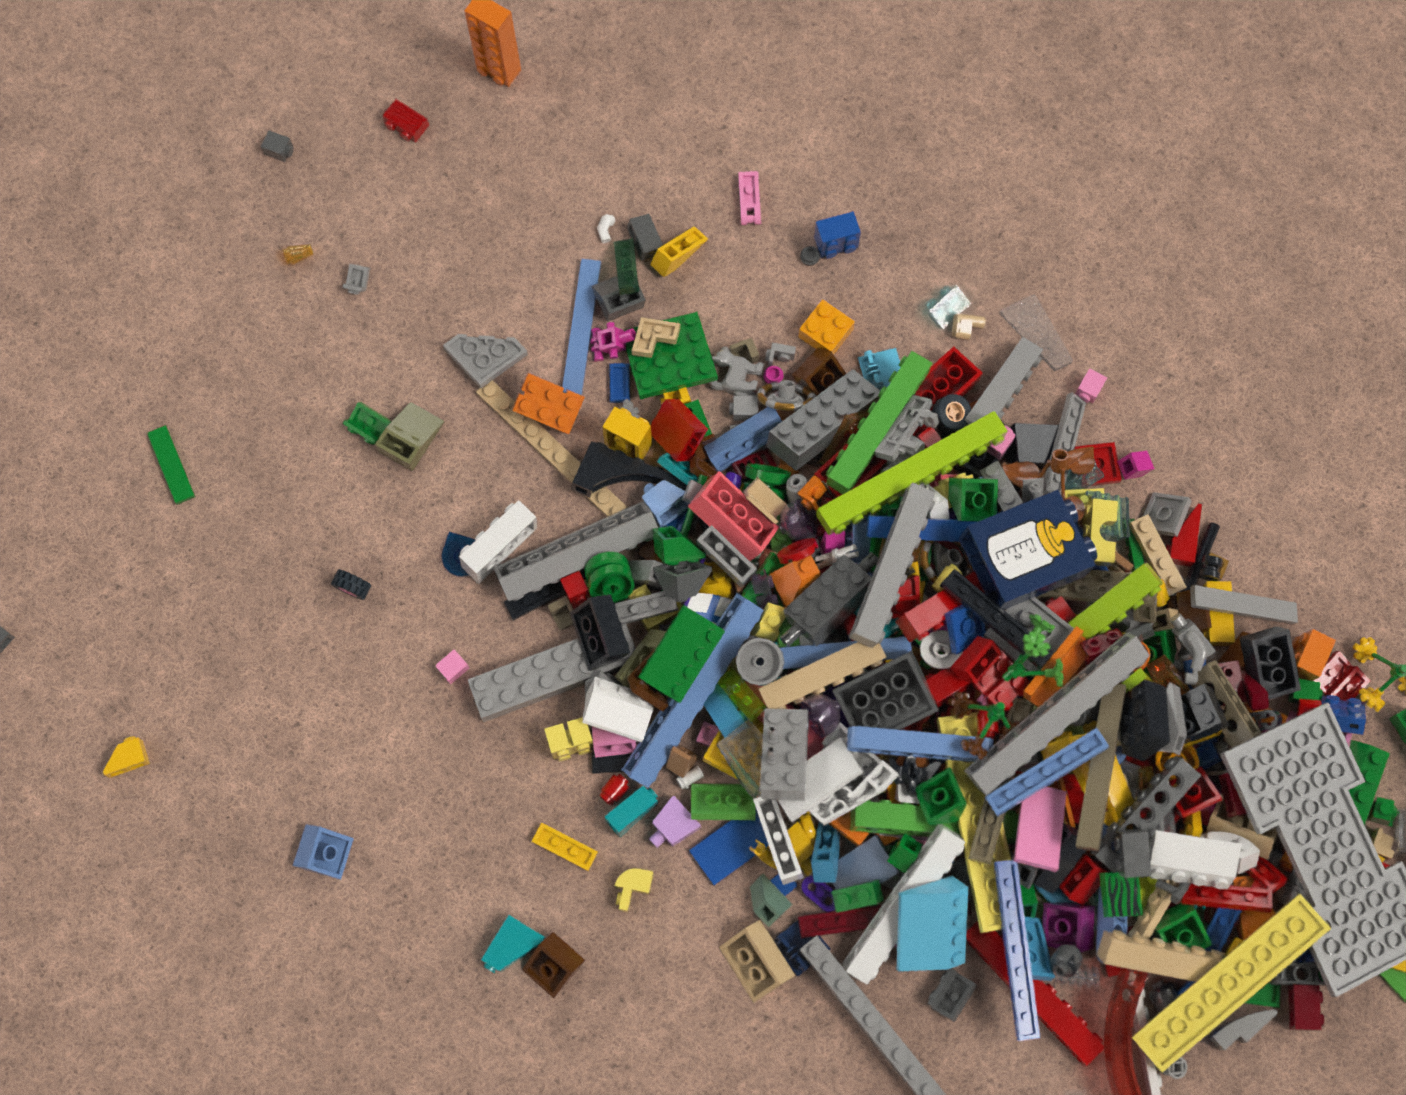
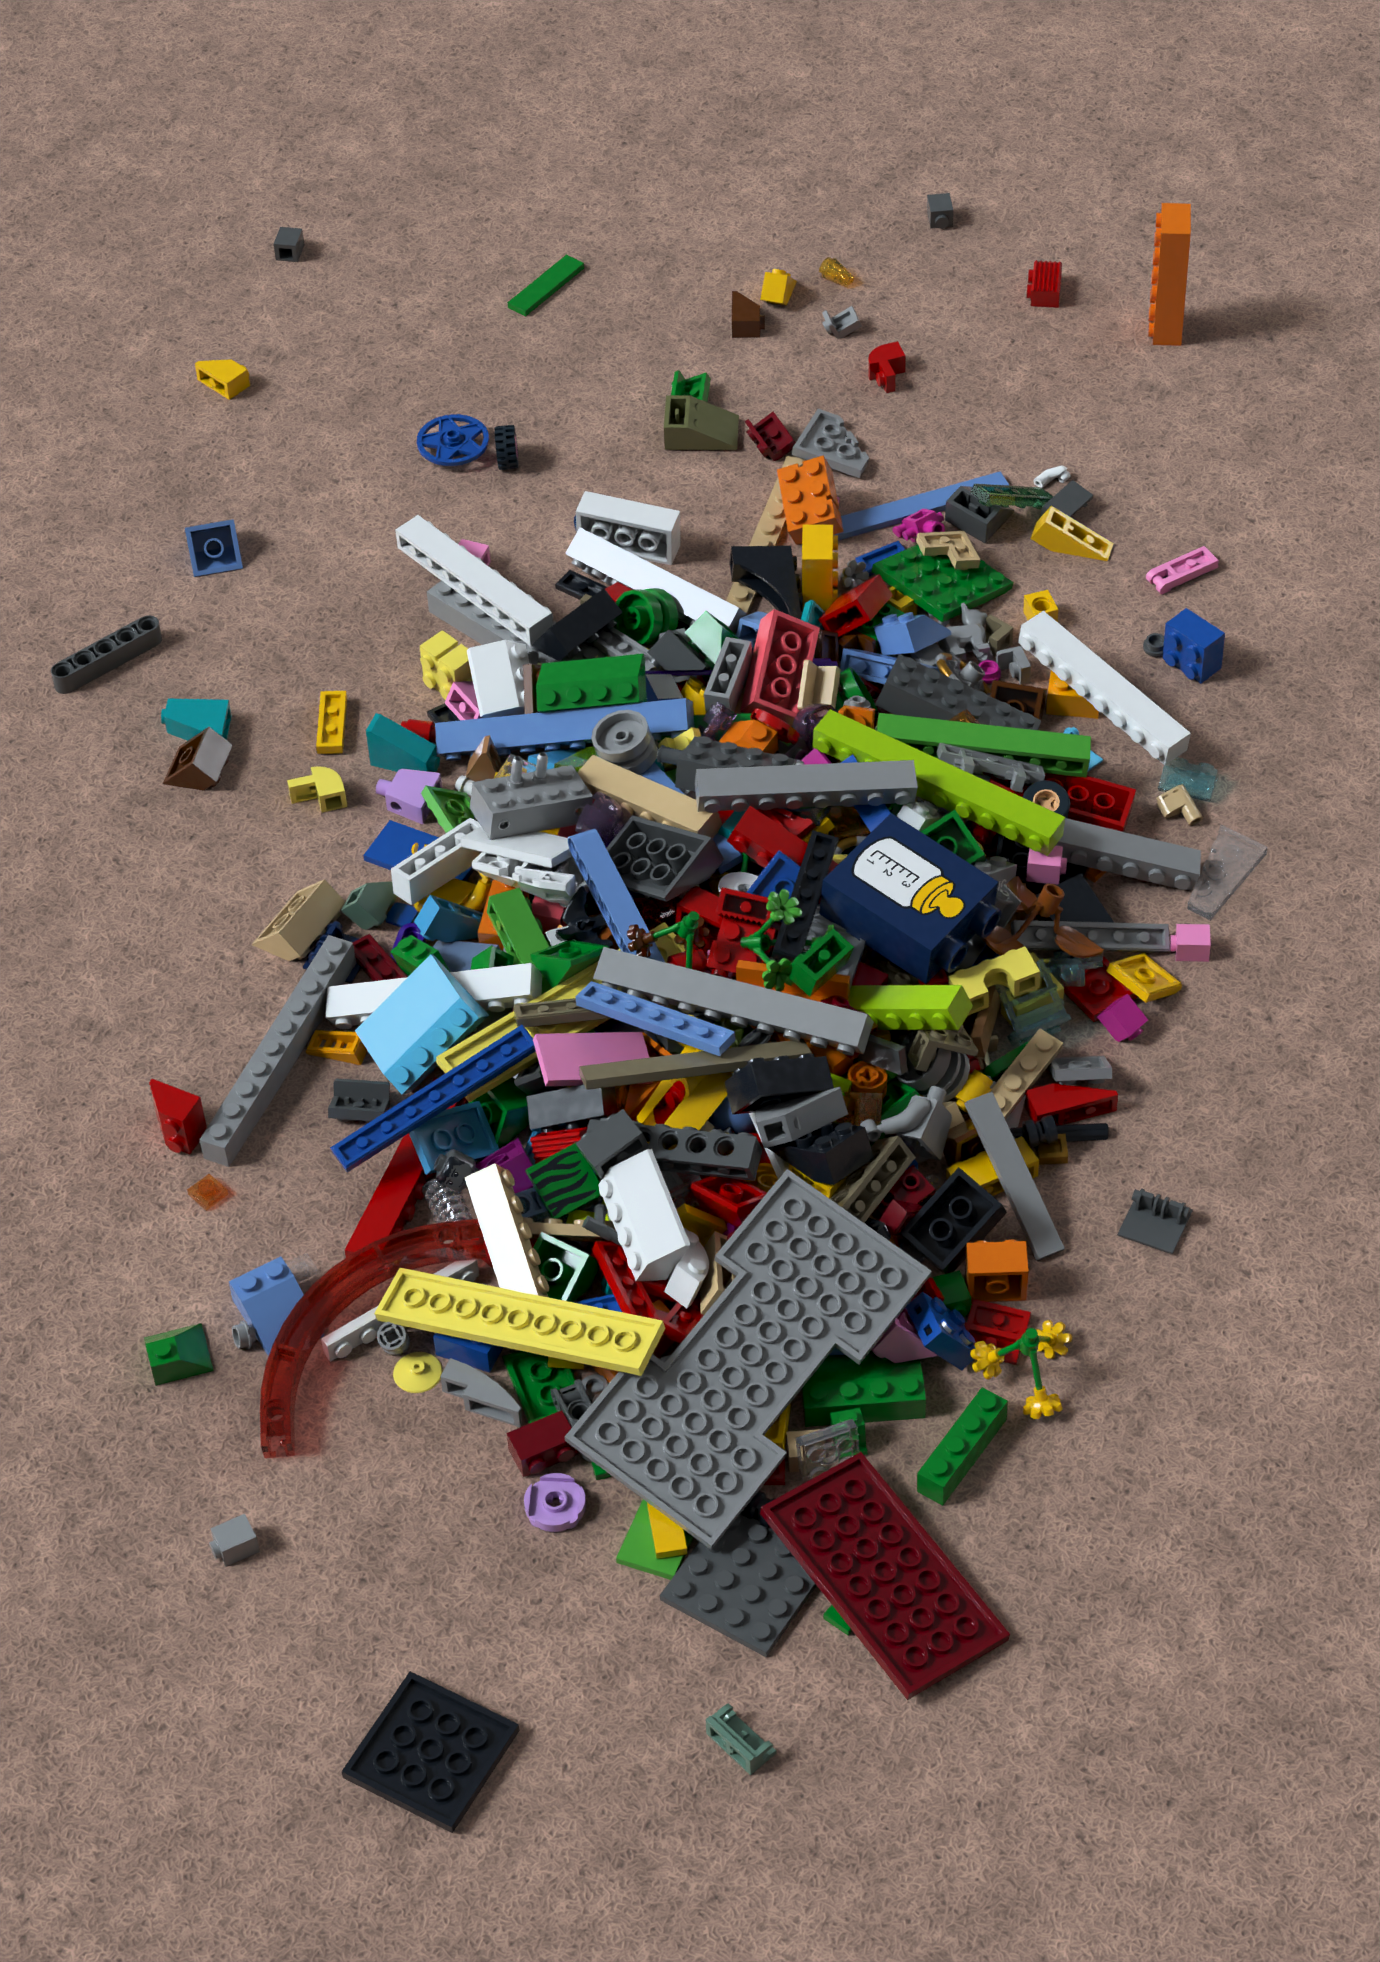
camera: 65 degrees right, 25 degrees down
(290, 302) = (777, 287): none -> yellow slope
(307, 342) = (746, 317): none -> reddish brown slope
(314, 619) = (452, 440): none -> blue wheel
(396, 995) = (106, 654): none -> dark grey beam
(421, 275) = (885, 363): none -> red brick
(450, 391) = (772, 437): none -> dark red bracket
(501, 680) = (474, 579): none -> white brick
(725, 409) = (908, 633): none -> medium blue slope
(738, 302) = (1038, 602): none -> yellow brick
(857, 315) = (1104, 688): none -> white brick
(880, 980) = (353, 1053): none -> light orange slope
(1072, 641) = (820, 962): none -> green brick
(1106, 432) = (1144, 977): none -> yellow plate
(1199, 1061) = (417, 1372): none -> light yellow piece
(1301, 537) = (1155, 1221): none -> dark grey hinge
(1359, 1017) = (560, 1517): none -> lavender plate

